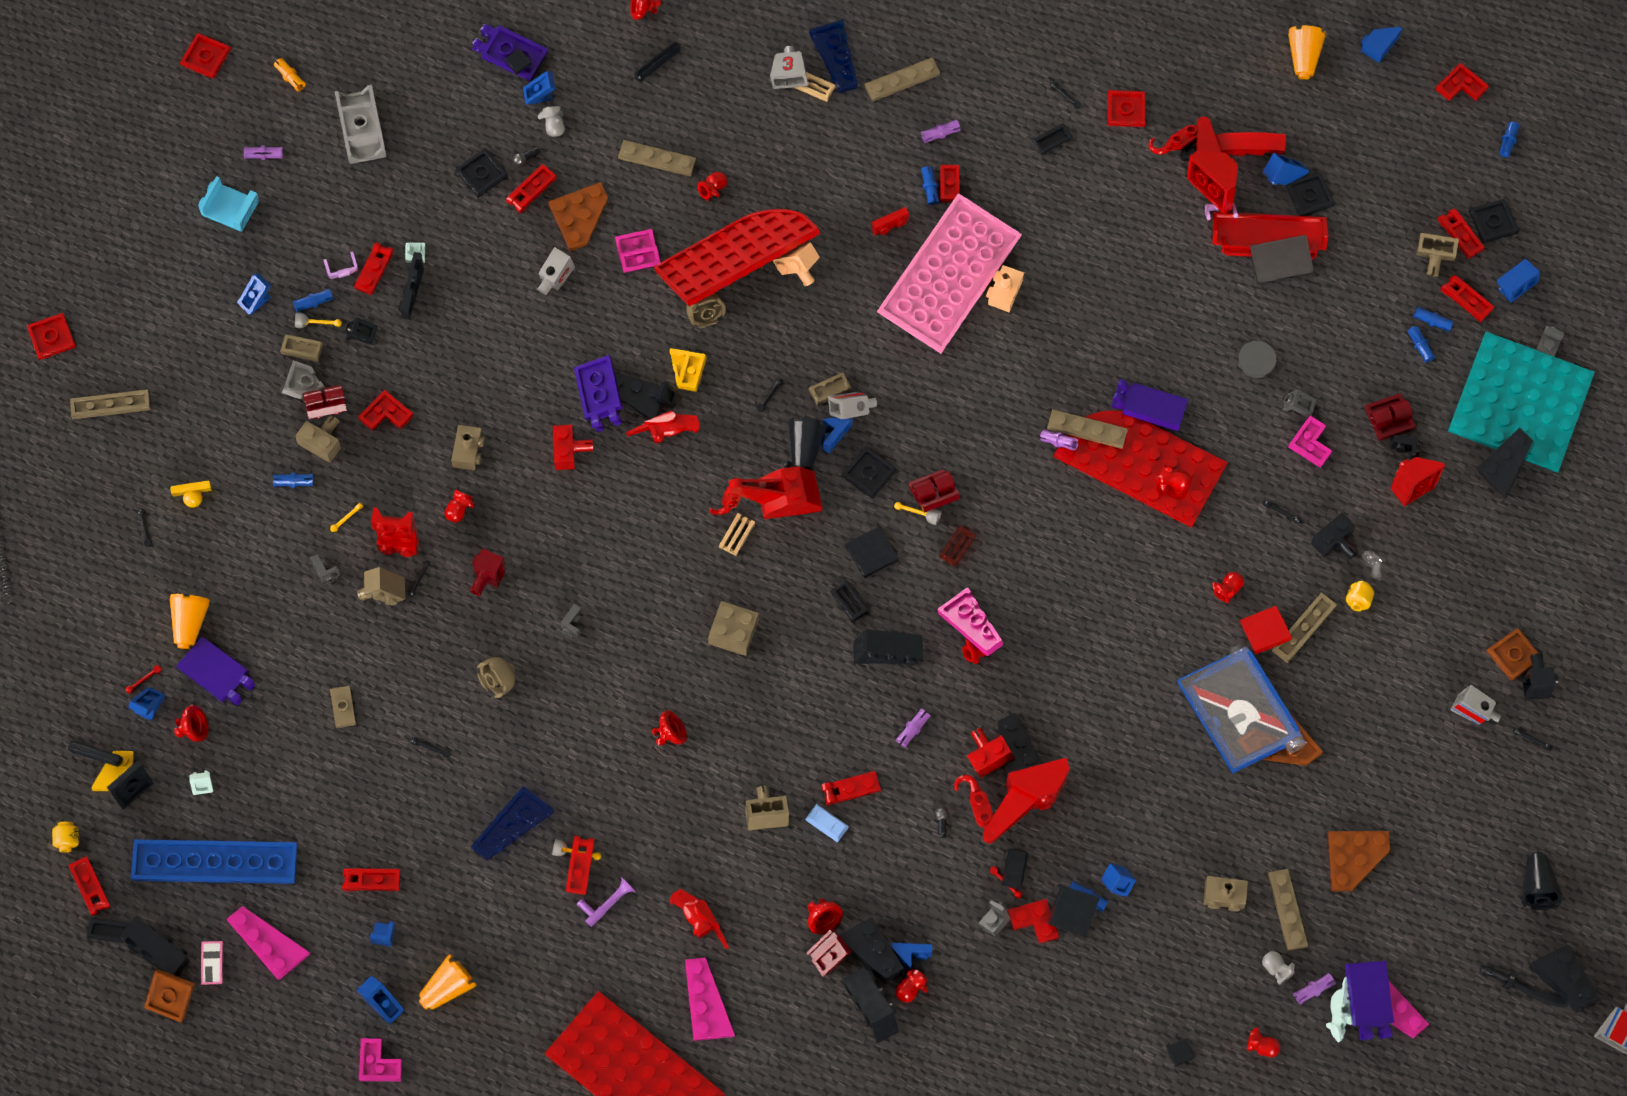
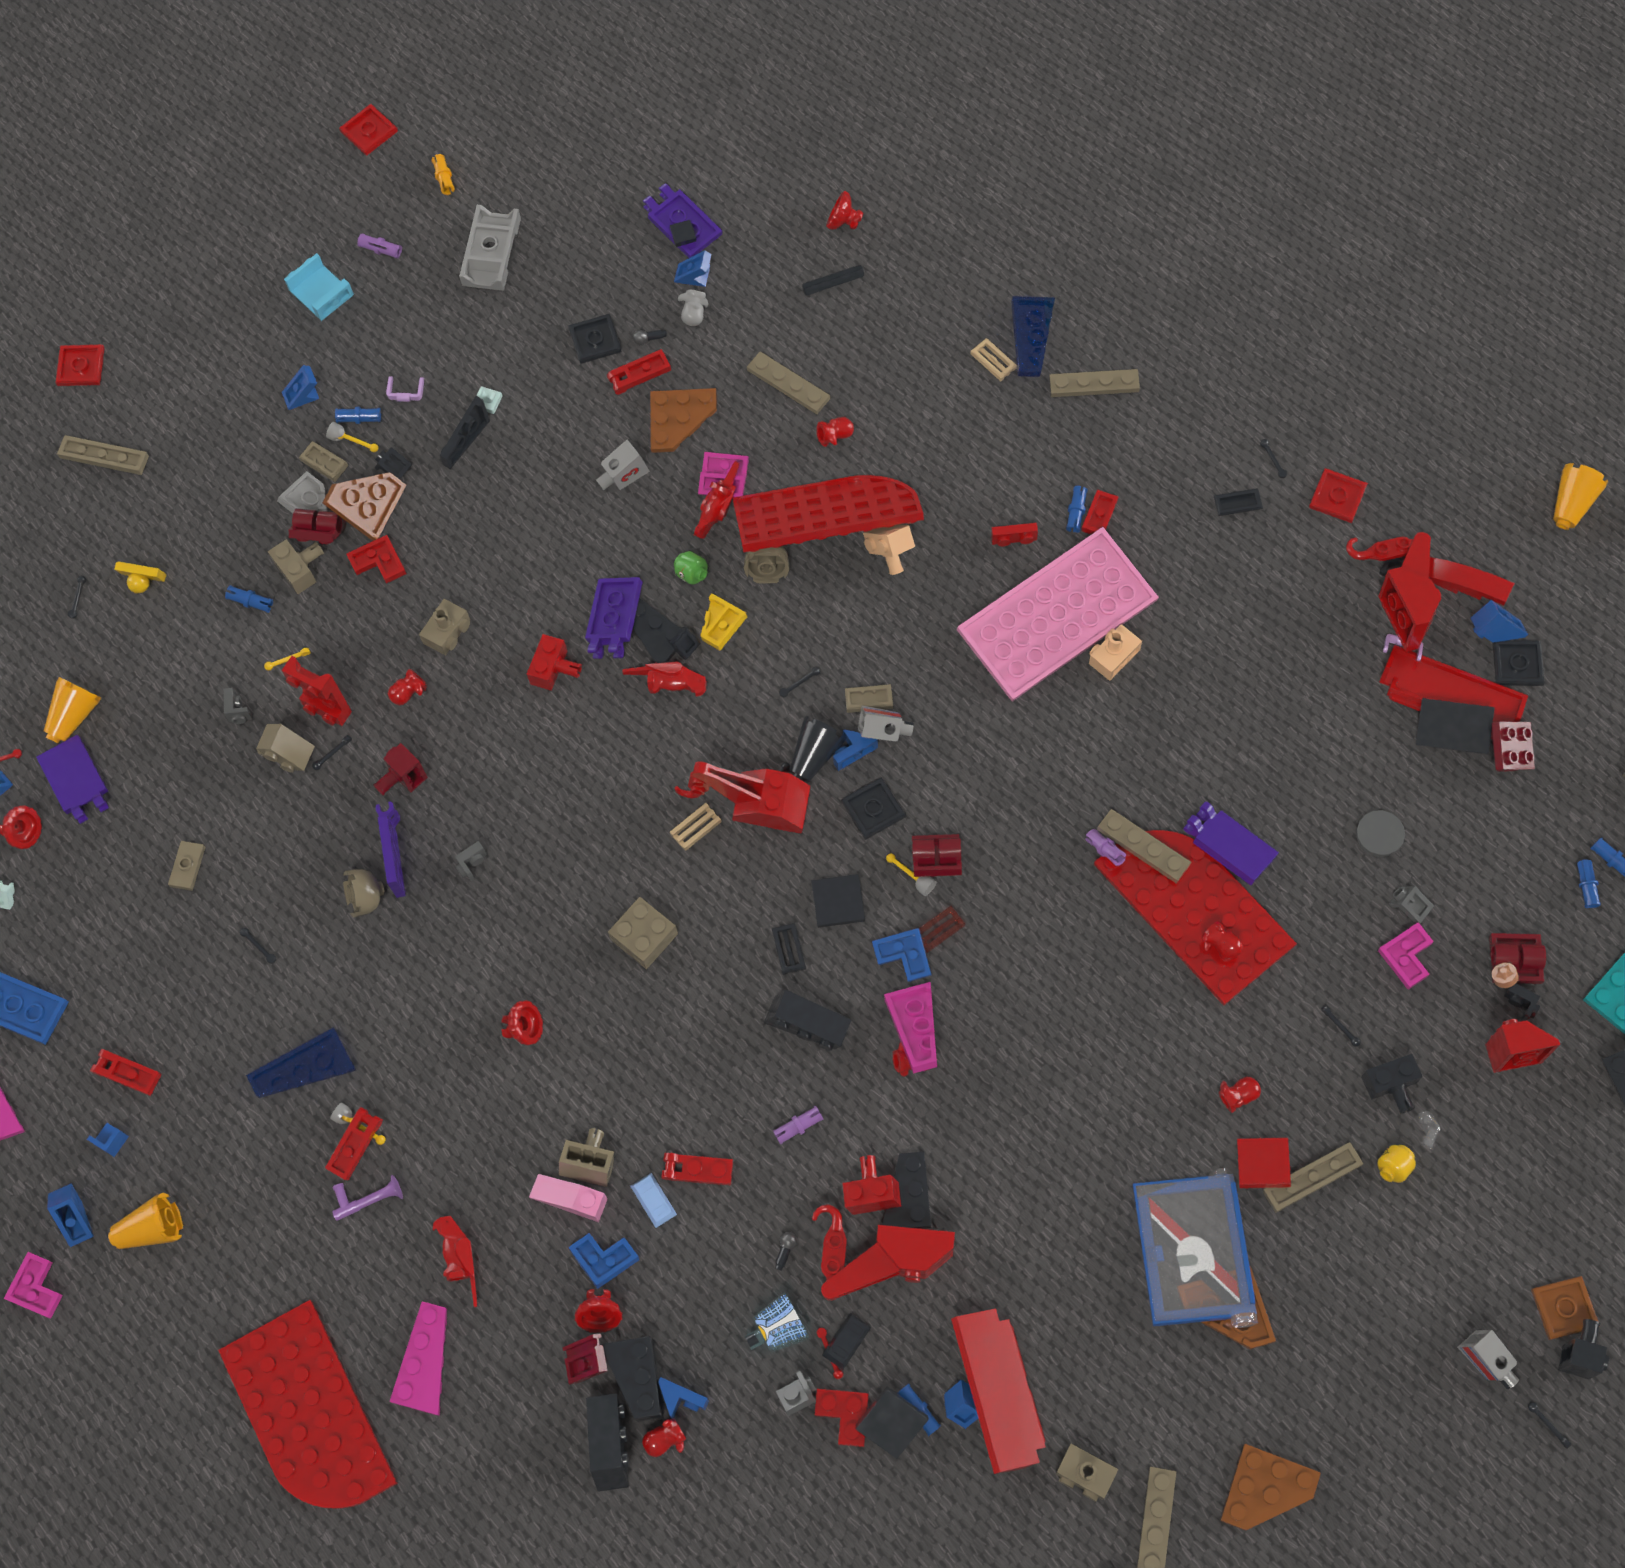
camera: 30 degrees right, 0 degrees up
(358, 368) = (366, 501): none -> plate
(373, 269) = (437, 402): red plate -> none
(506, 633) = (391, 849): none -> dark purple tile
(643, 274) = (717, 502): none -> red animal
(645, 333) = (690, 566): none -> bright green head
(763, 843) = (569, 1197): none -> bright pink slope
(788, 69) = (970, 332): light grey torso -> none
(809, 882) = (602, 1265): none -> blue plate
(940, 131) = (1113, 453): medium lavender pin -> none
(940, 568) = (907, 947): none -> blue plate
(961, 876) = (777, 1326): none -> torso
(1141, 859) = (999, 1390): none -> red slope
(1330, 259) = (1513, 746): none -> plate
(1386, 431) = (1505, 975): none -> nougat tile

